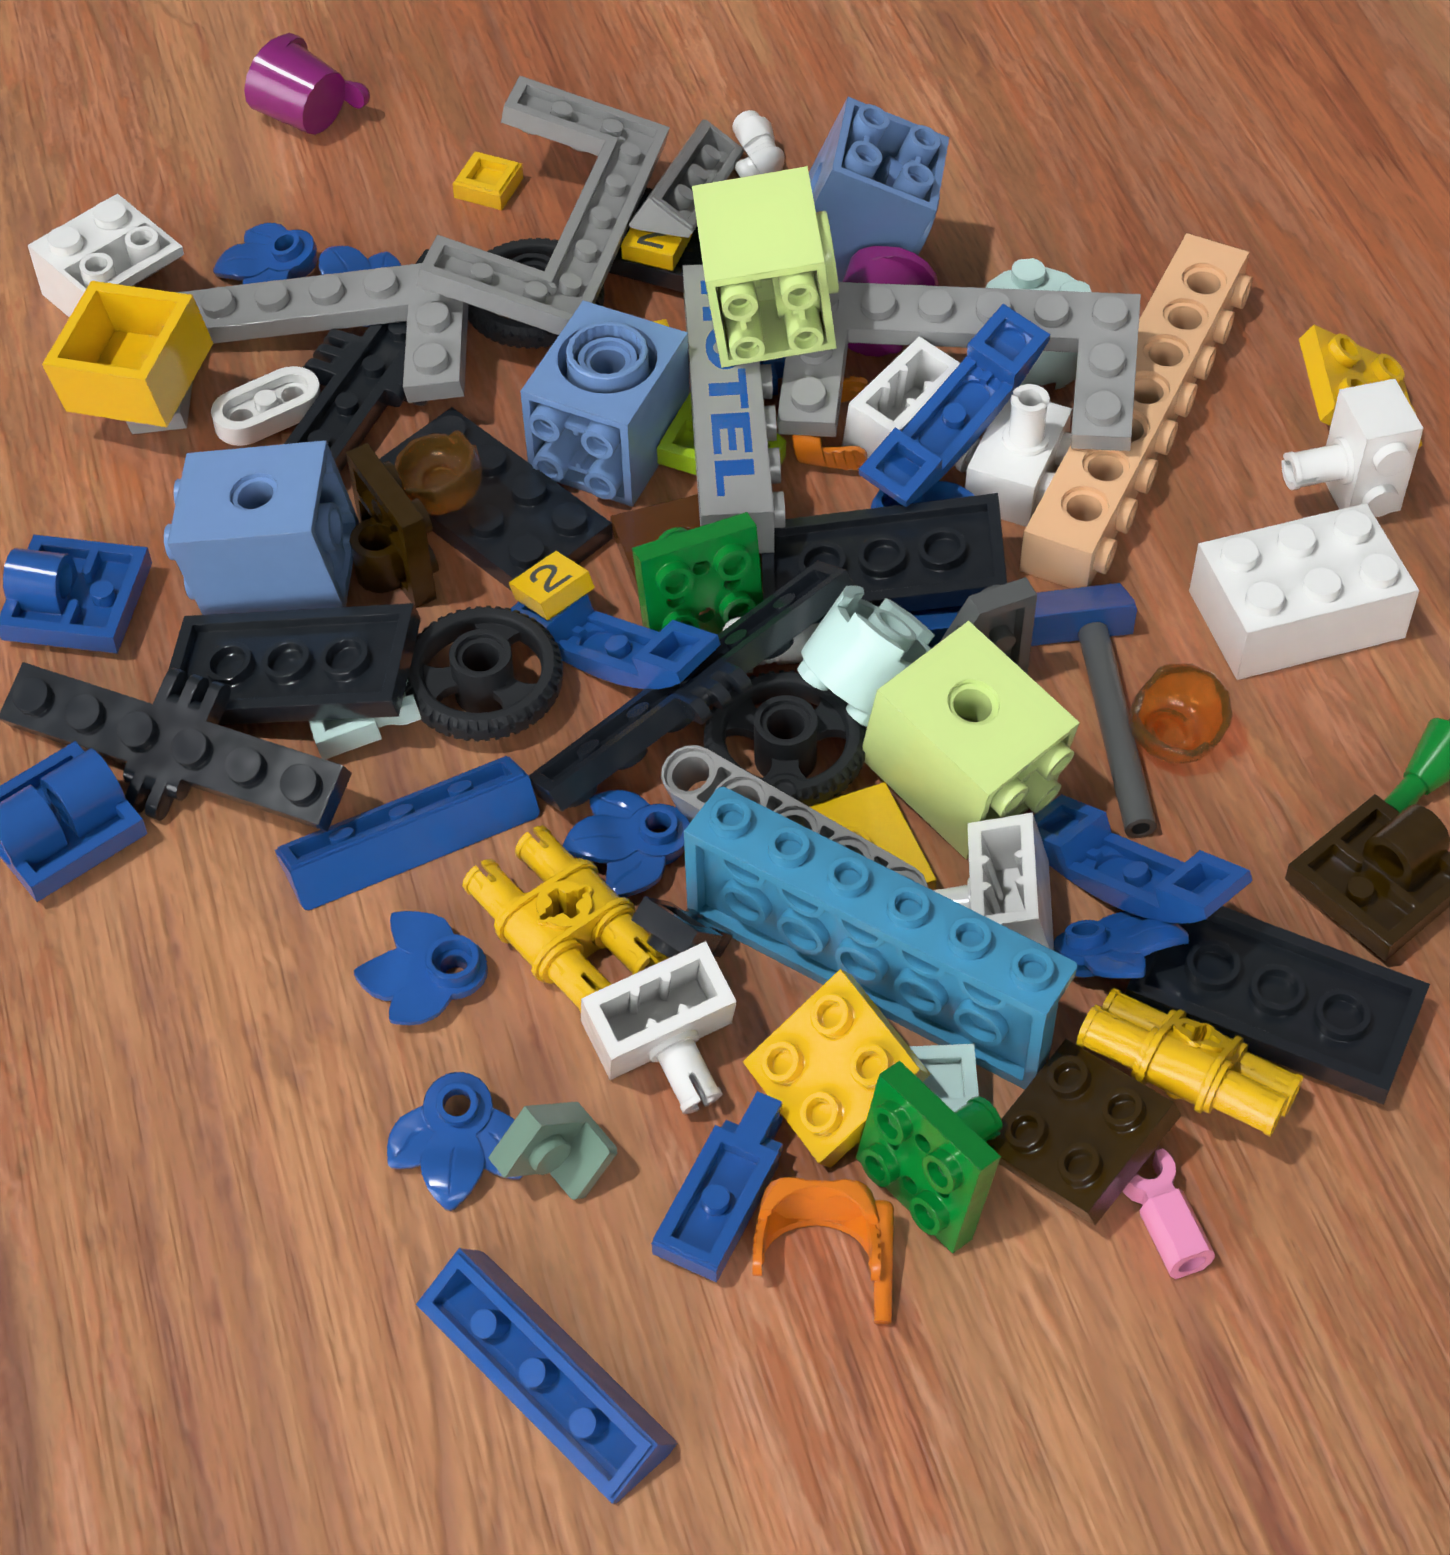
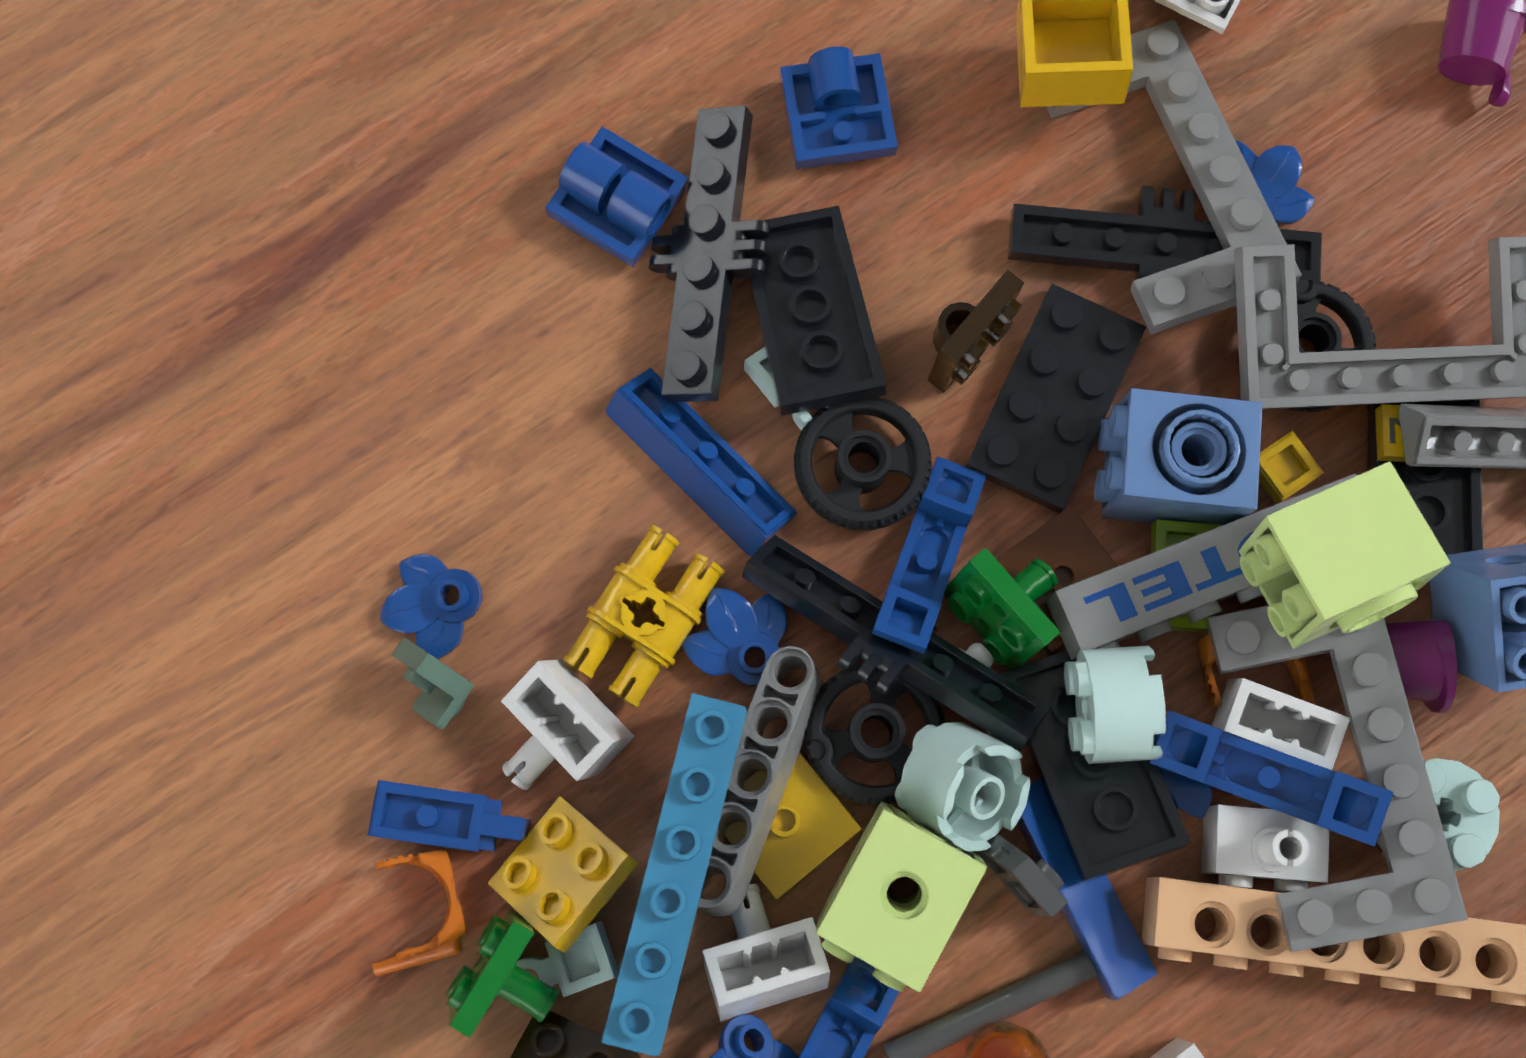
camera: 65 degrees right, 25 degrees up
(262, 529) = (926, 232): medium blue brick -> none
(264, 405) = (1094, 171): white plate -> none
(269, 255) = (1261, 98): blue plate -> none
(416, 970) = (571, 516): blue plate -> none
(440, 471) = (1040, 348): clear orange hair -> none
(488, 180) = (1444, 251): yellow tile -> none
(546, 1374) = (270, 738): blue slope -> none
(551, 585) = (966, 485): yellow tile -> none
(677, 929) = (645, 713): black plate -> none
(838, 494) = (1115, 705): none -> light aqua brick

